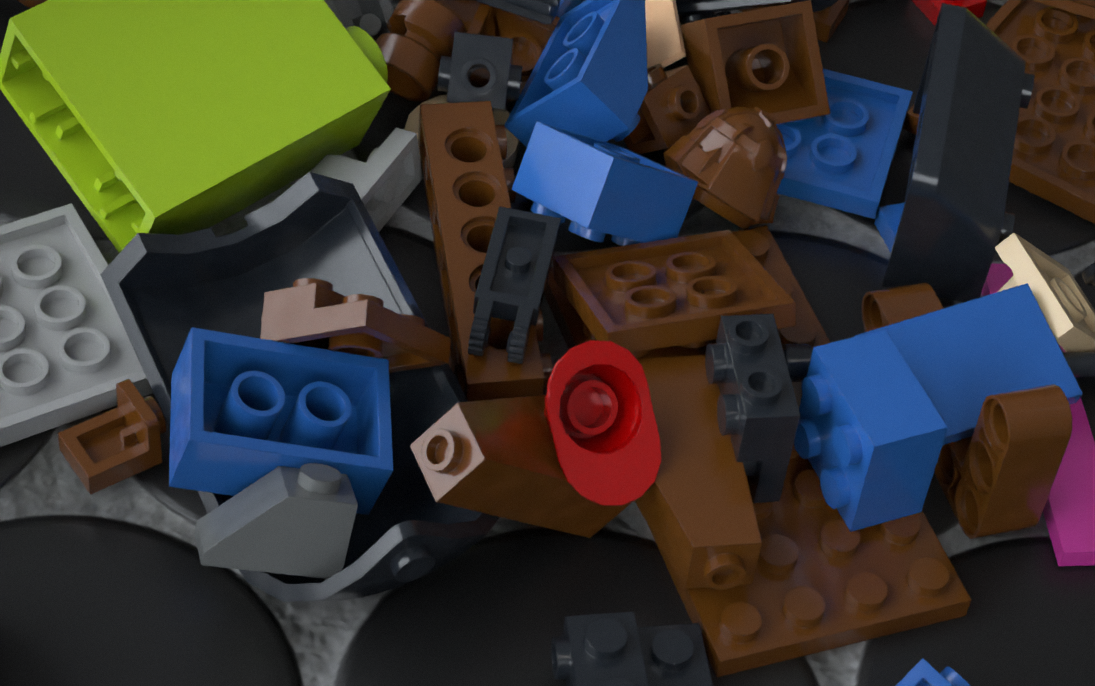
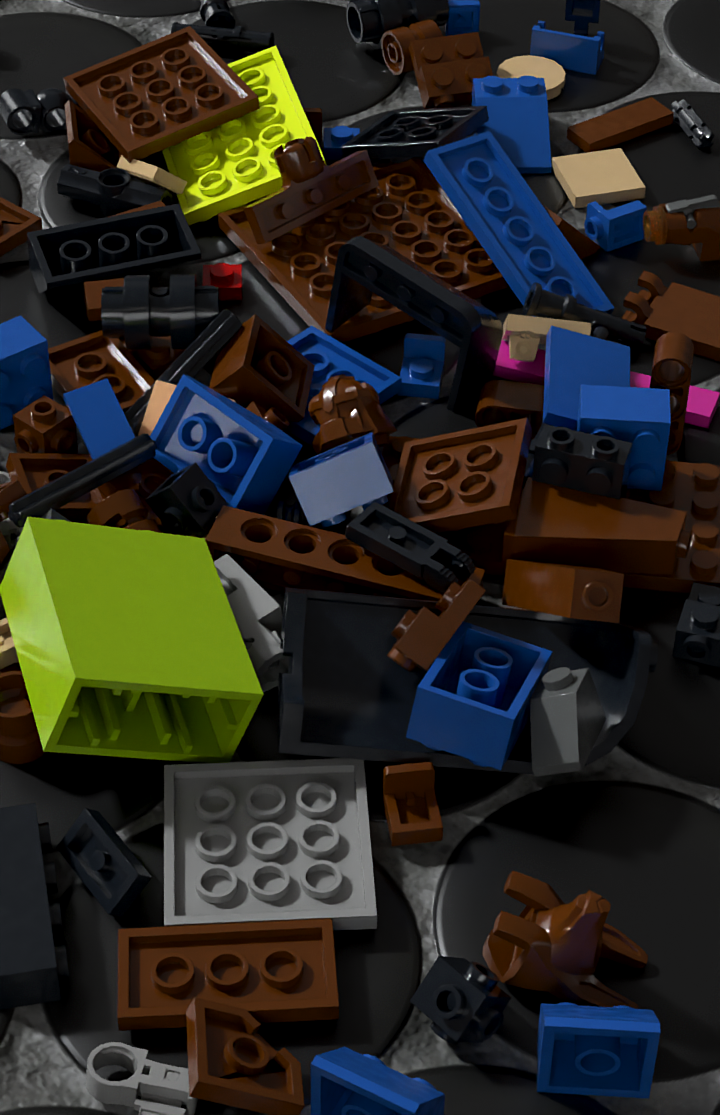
camera: 60 degrees left, 5 degrees down
(603, 423) = (573, 536): red piece -> none

